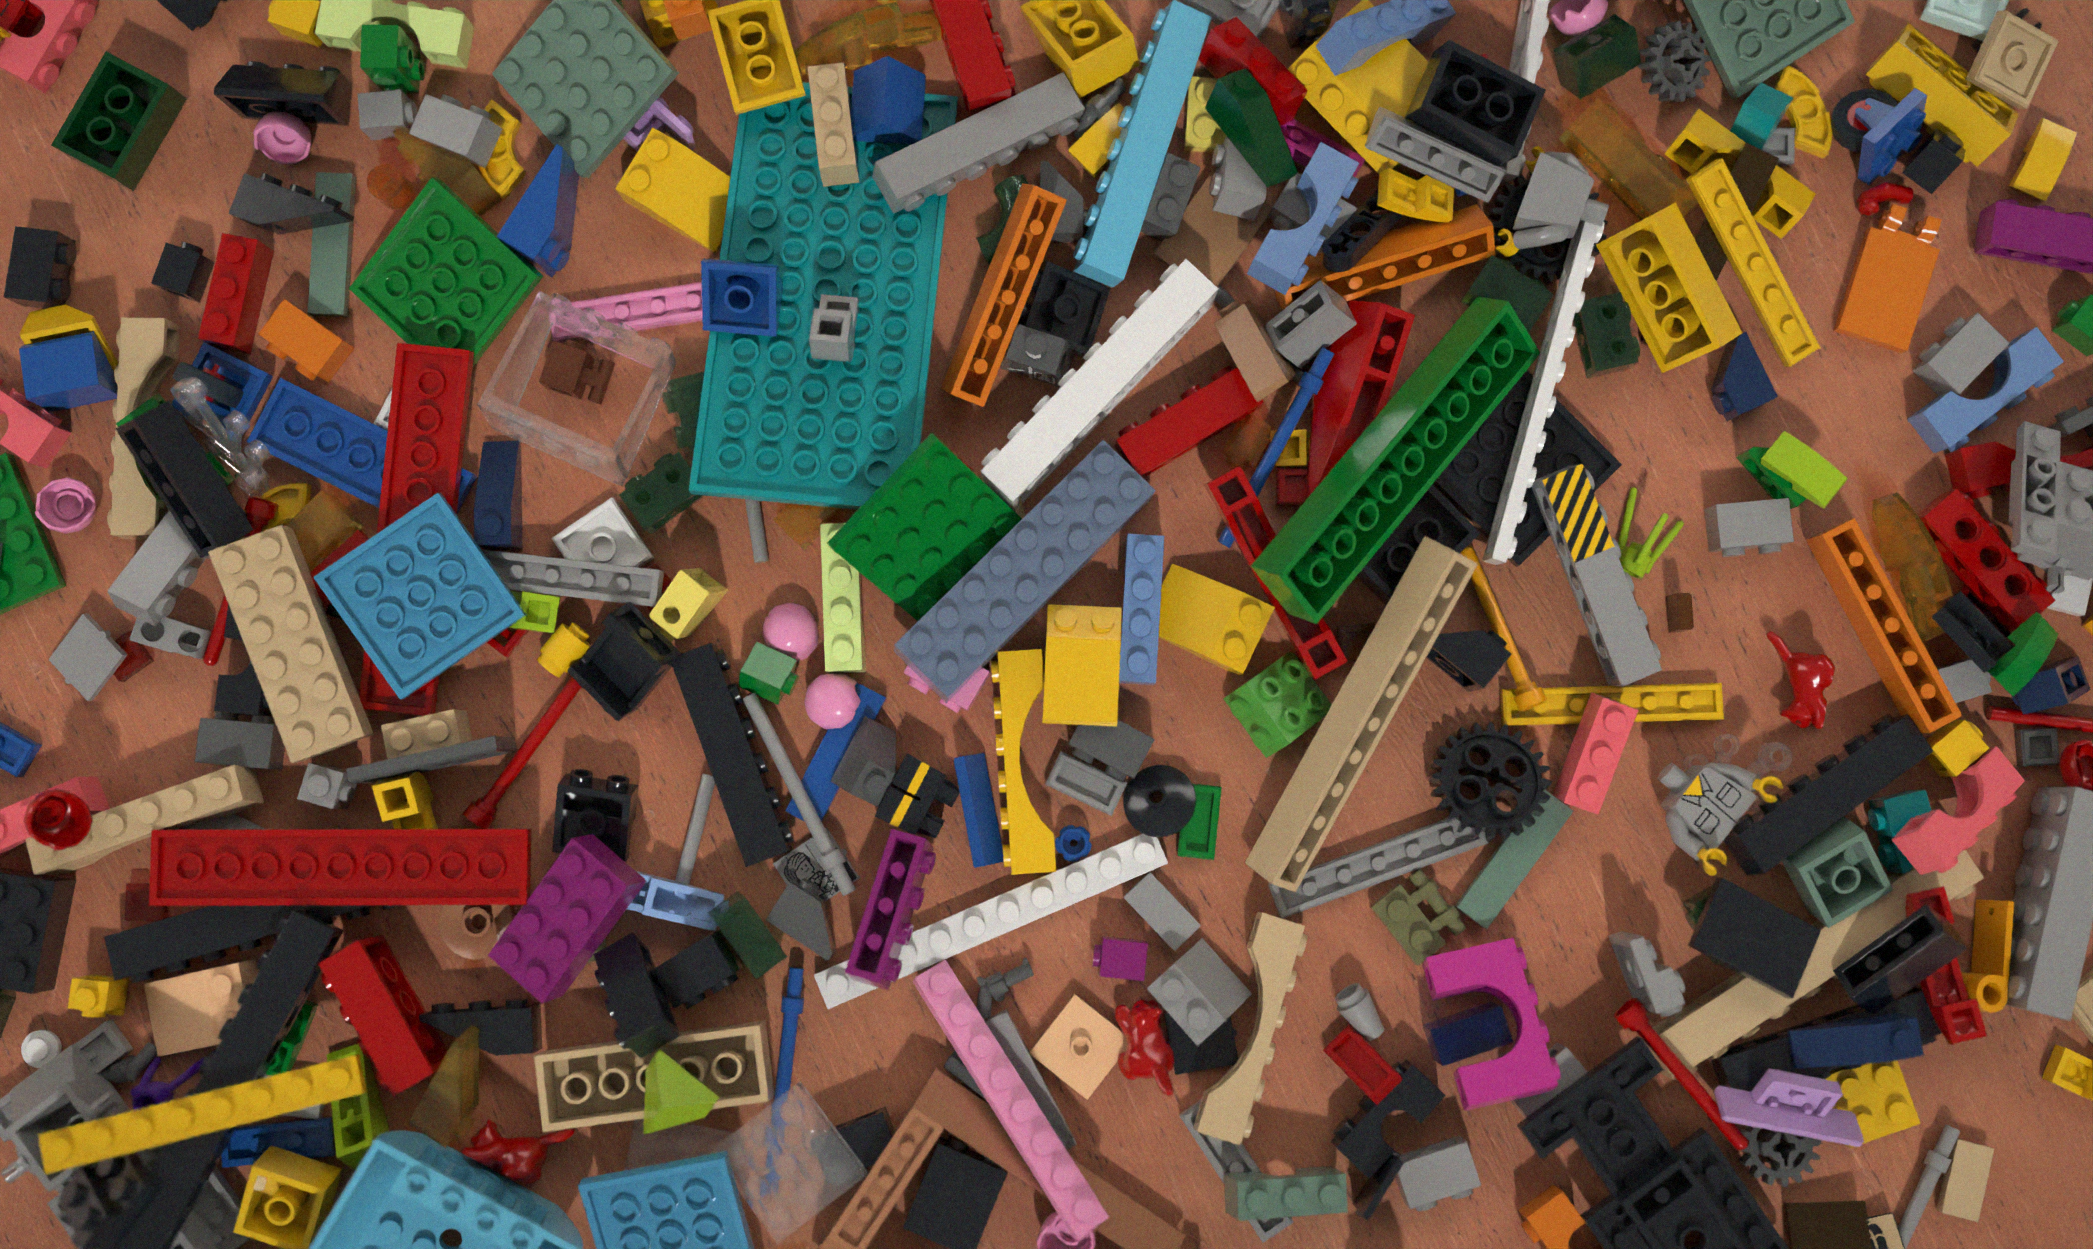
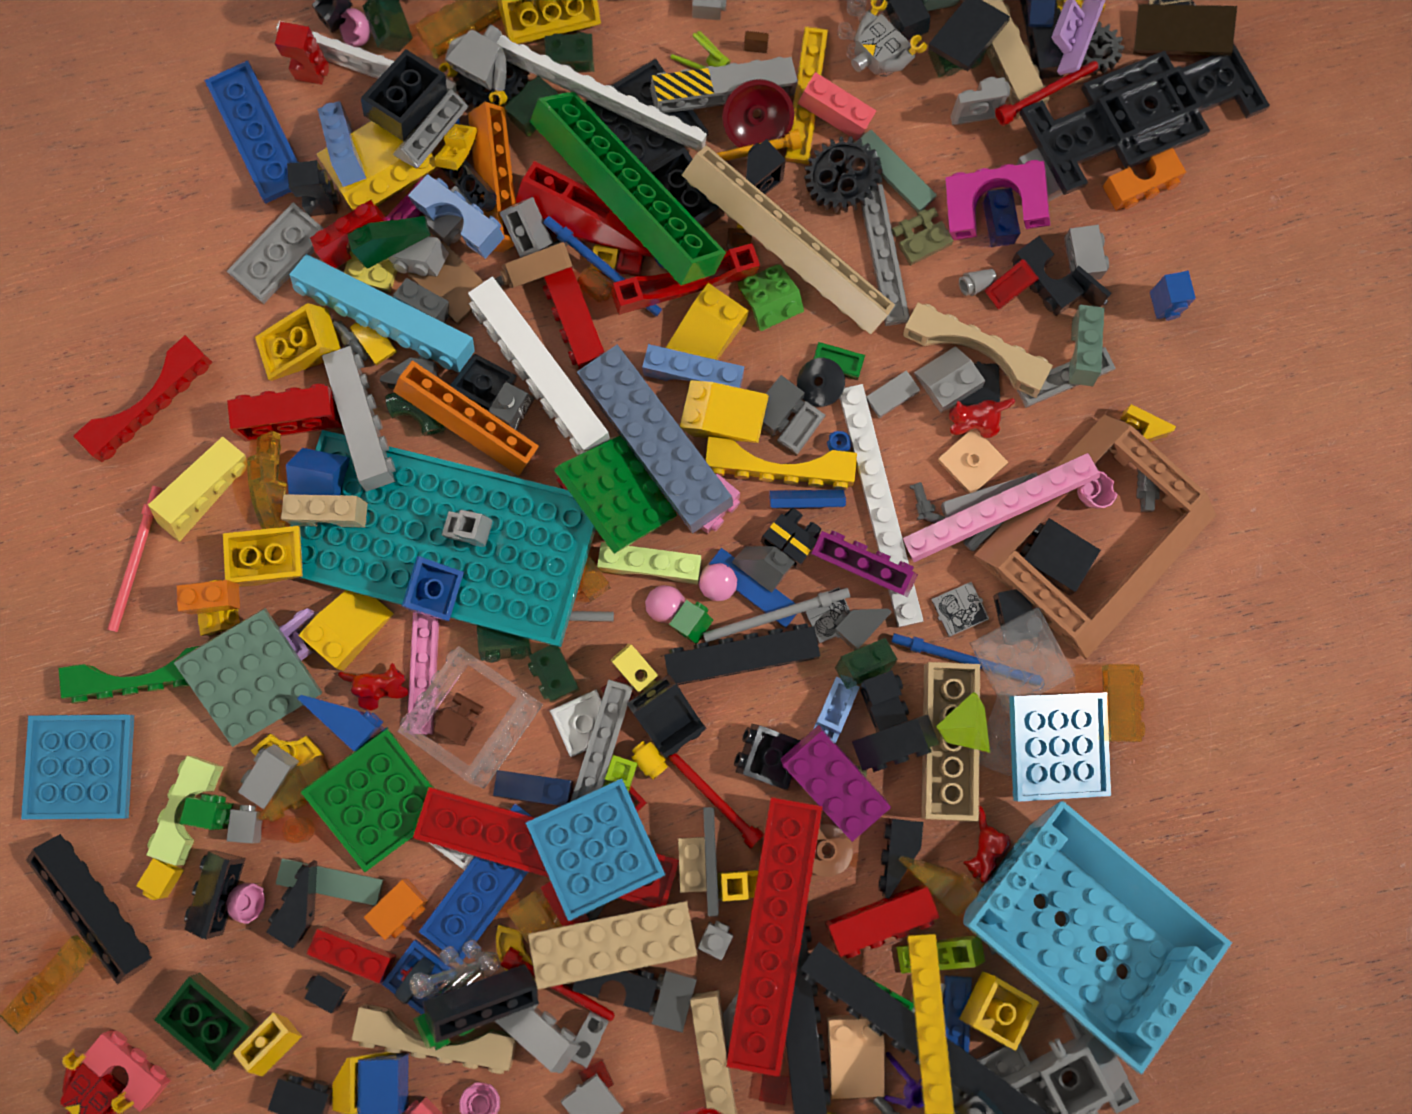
camera: 80 degrees left, 5 degrees down
(100, 207) = (267, 1044): none -> yellow brick
(600, 243) = (372, 687): none -> red animal
(695, 829) = (787, 691): light grey bar -> none
(856, 1060) = (960, 609): none -> piece
(1121, 958) = (919, 423): magenta brick -> none
(1535, 627) = (775, 116): none -> dark red dish

